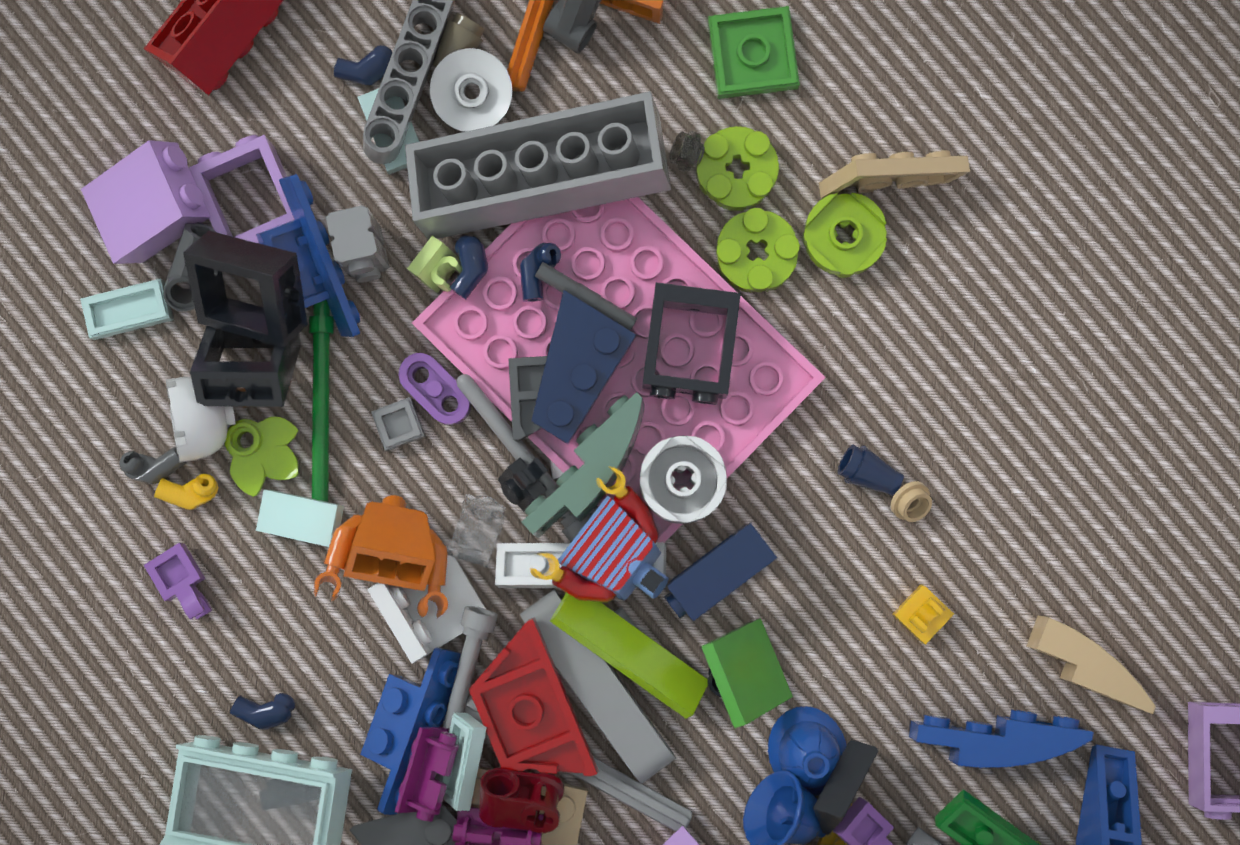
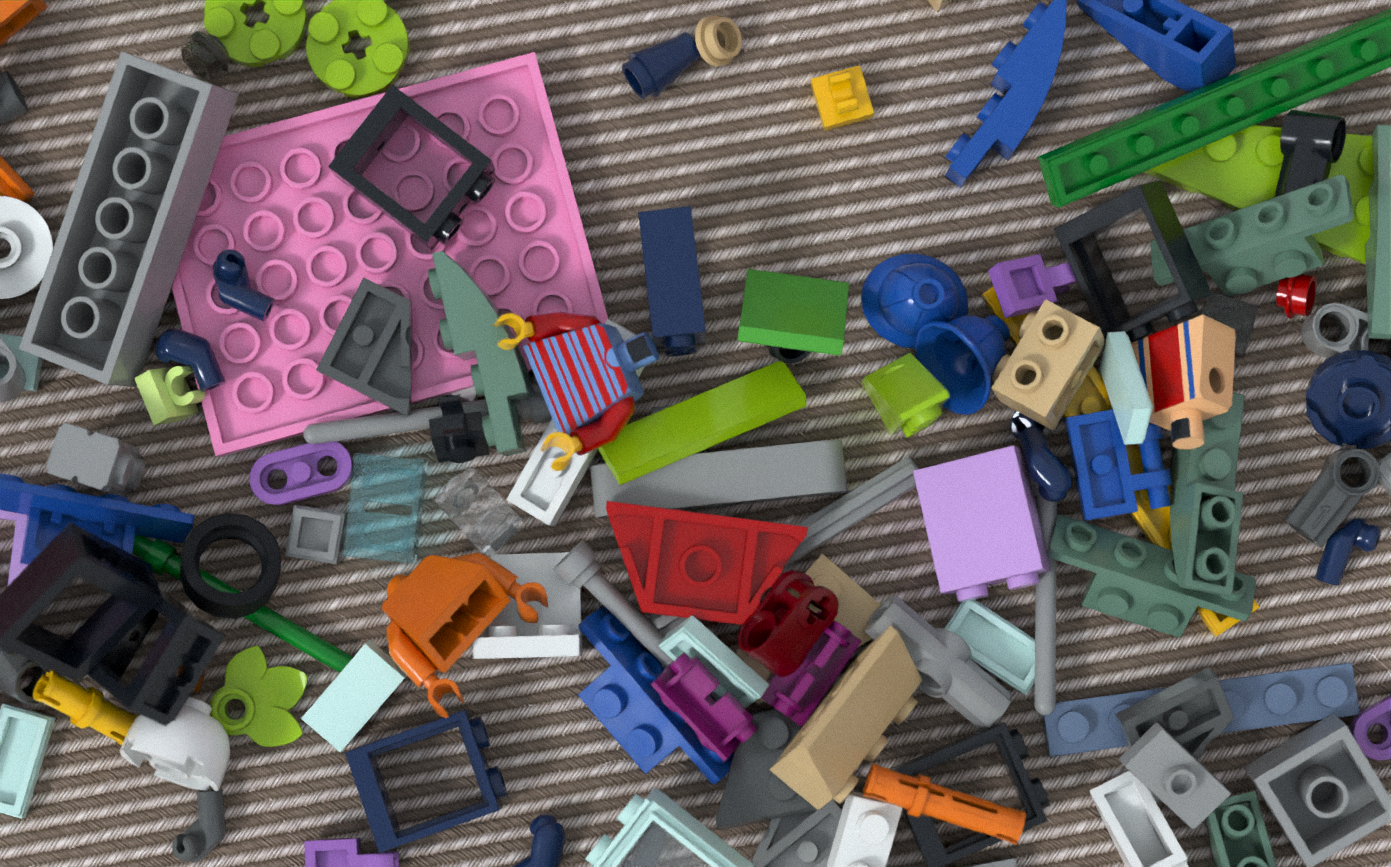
camera: 65 degrees left, 0 degrees up
(185, 334) = (84, 706): none -> yellow pin
(191, 494) = (259, 802): yellow arm -> none
(235, 575) = (376, 798): none -> dark blue window
(369, 365) = (236, 528): none -> black tyre
(424, 472) = (387, 482): none -> clear light blue piece
(562, 282) = (298, 251): dark grey piece -> none
(578, 366) = (368, 298): dark blue wing -> none
(678, 455) = (524, 249): white brick -> none
(733, 792) = (905, 395): none -> lime slope
(843, 784) = (965, 278): black slope -> none

